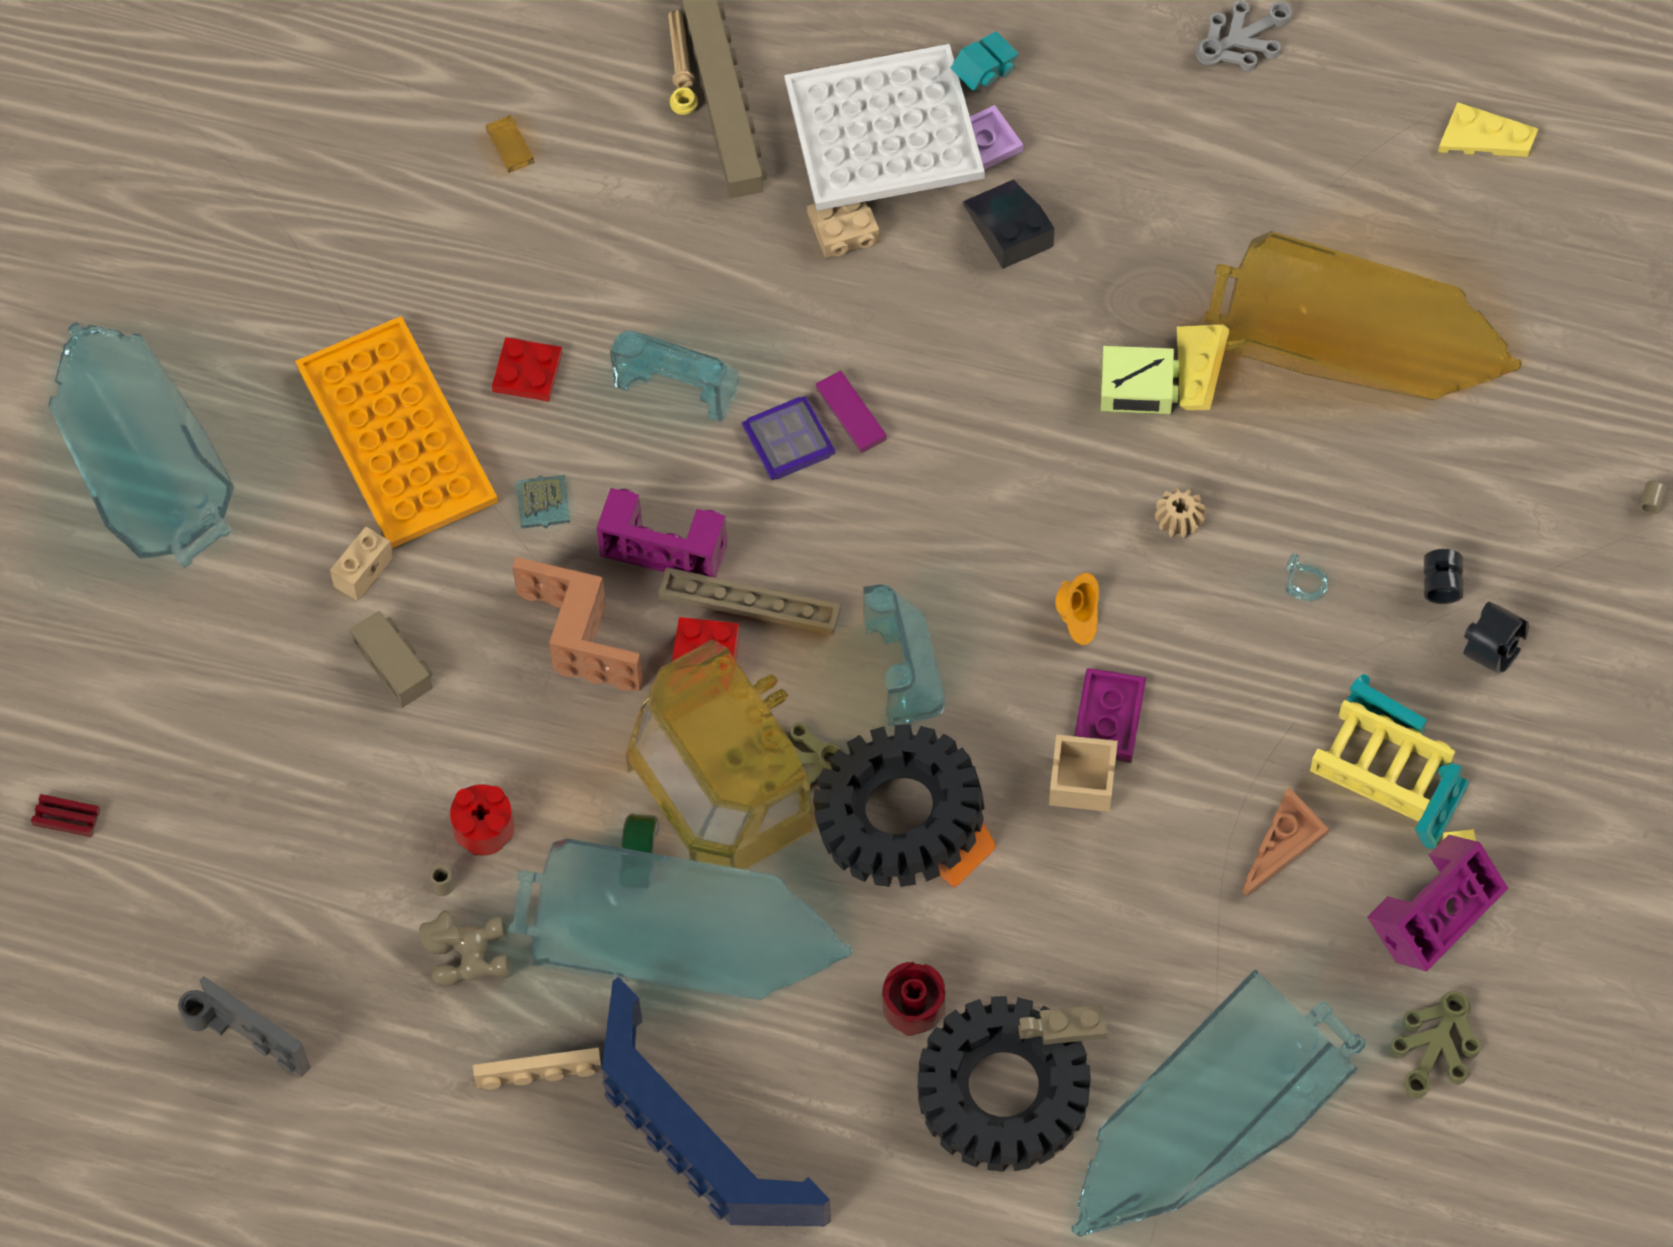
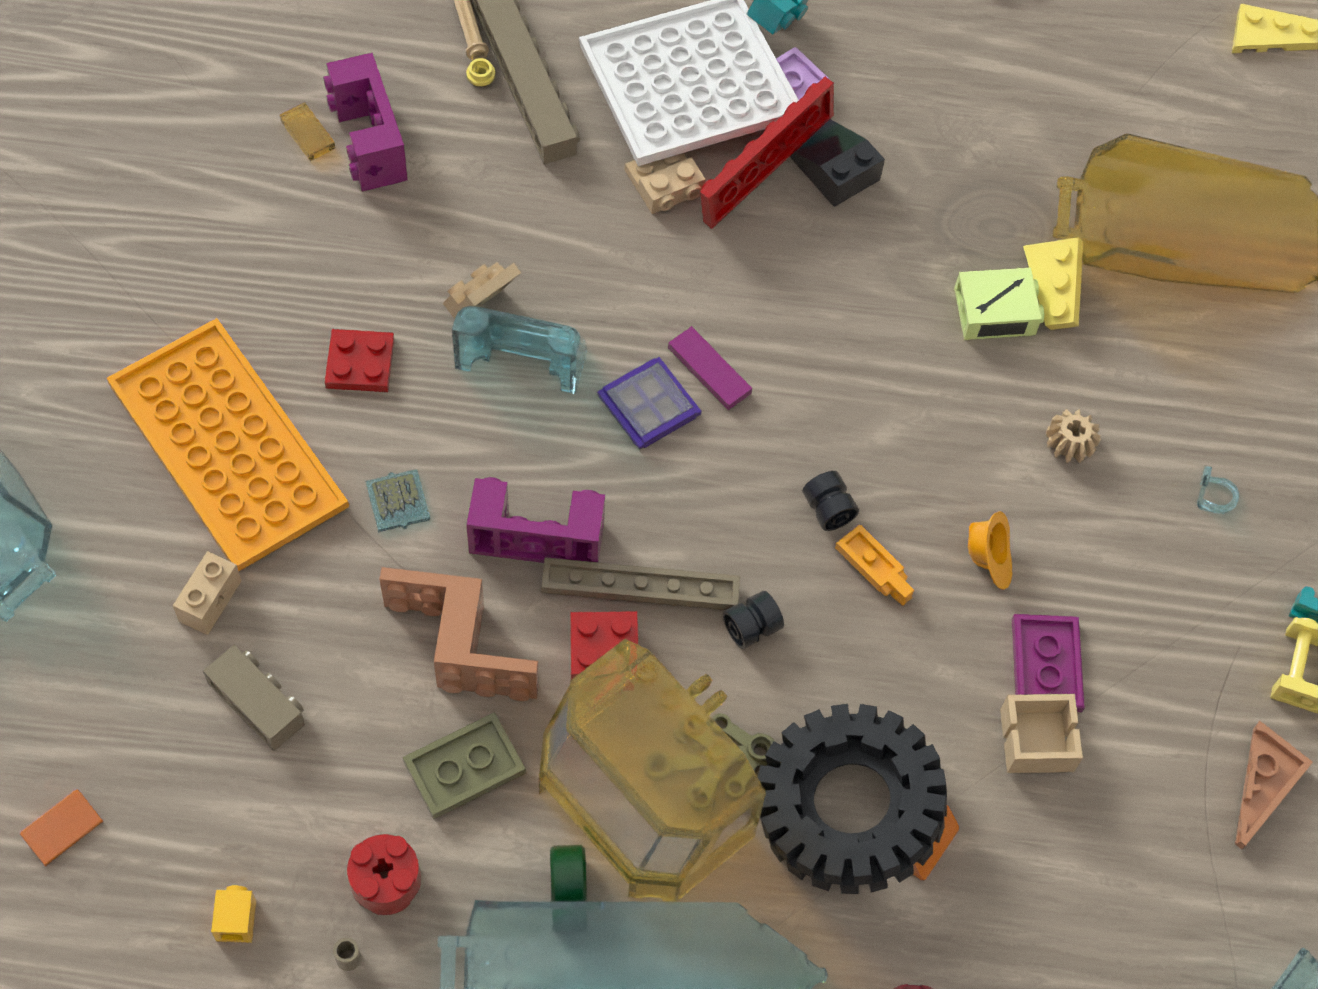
camera: 15 degrees left, 0 degrees up
(213, 747) = (61, 827): none -> orange slope
(350, 836) = (233, 915): none -> yellow brick
(559, 111) = (357, 92): none -> magenta plate
(565, 738) = (464, 765): none -> olive plate
(648, 314) = (484, 286): none -> tan plate
(843, 644) = (758, 617): none -> black wheel
(911, 686) = (840, 654): clear light blue windscreen -> none
(937, 546) = (829, 498): none -> black wheel
(941, 210) = (767, 152): none -> red plate
(967, 608) = (875, 564): none -> light orange hinge

